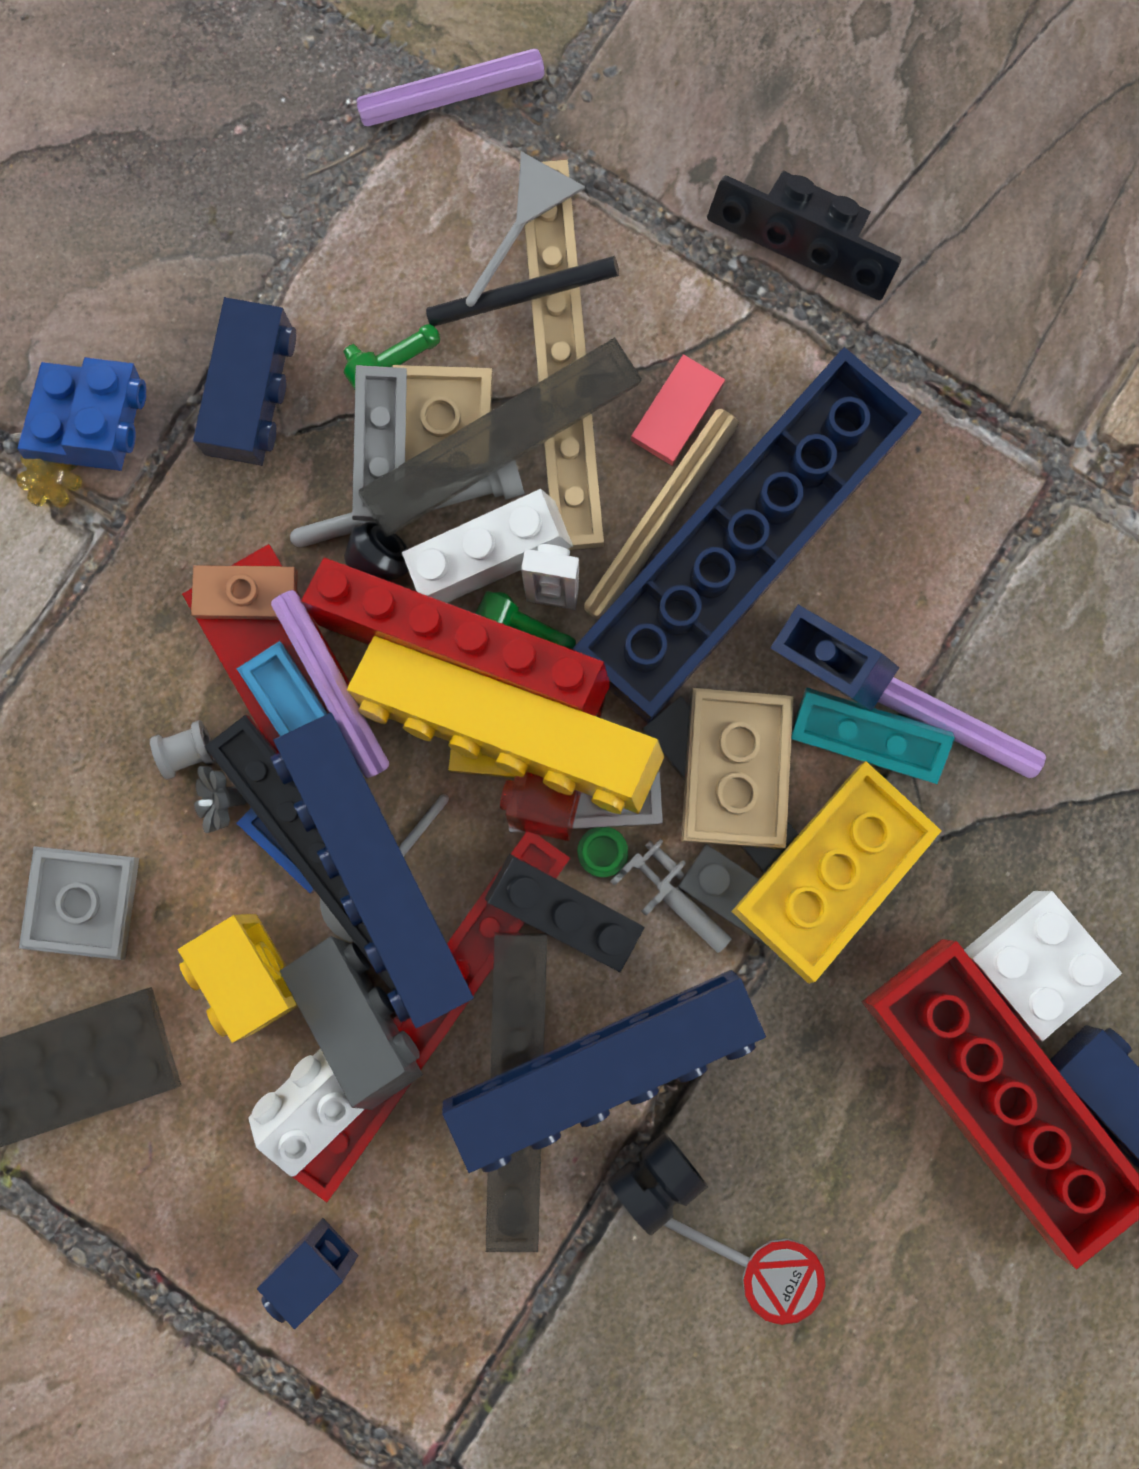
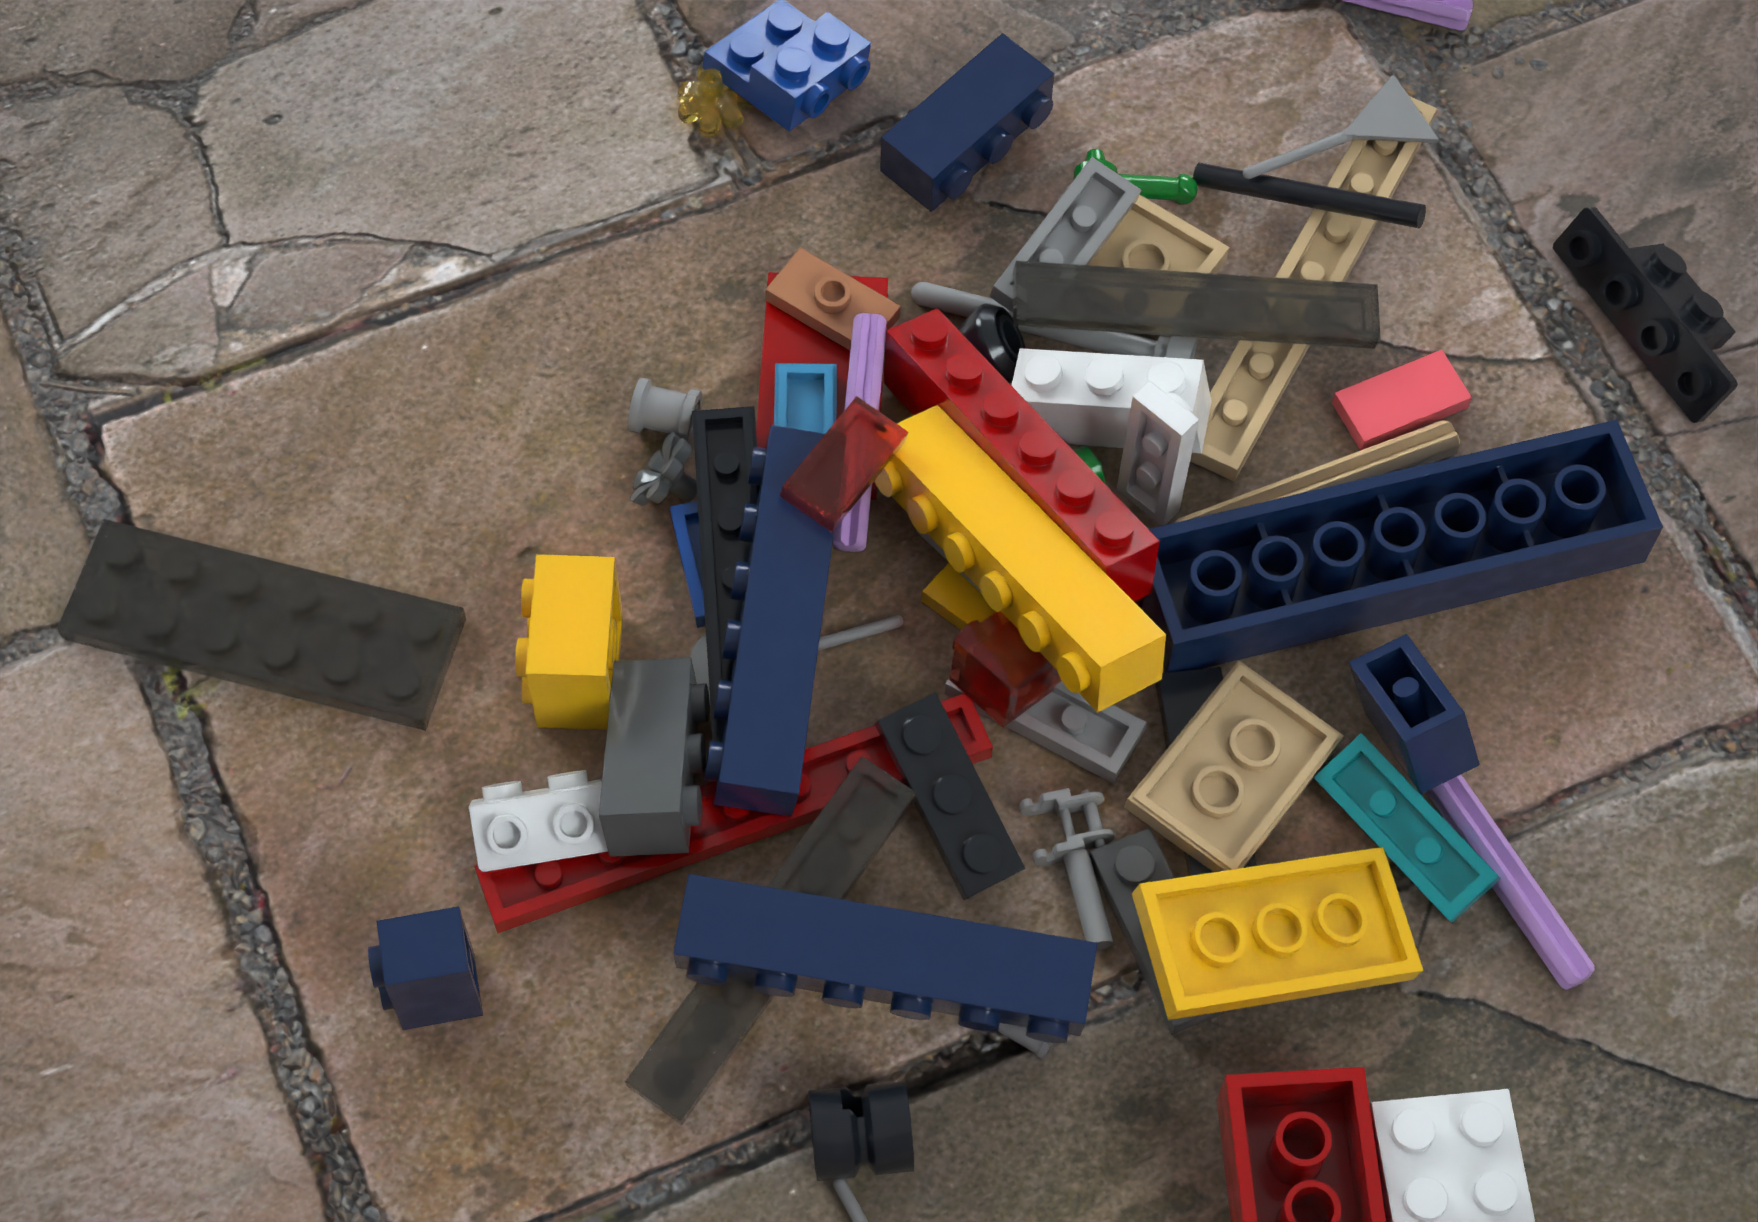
camera: 30 degrees right, 20 degrees down
(79, 903) = (455, 493): light grey tile -> none
(344, 736) = (844, 464): none -> clear red tile
(602, 851) = (1030, 769): green plate -> none

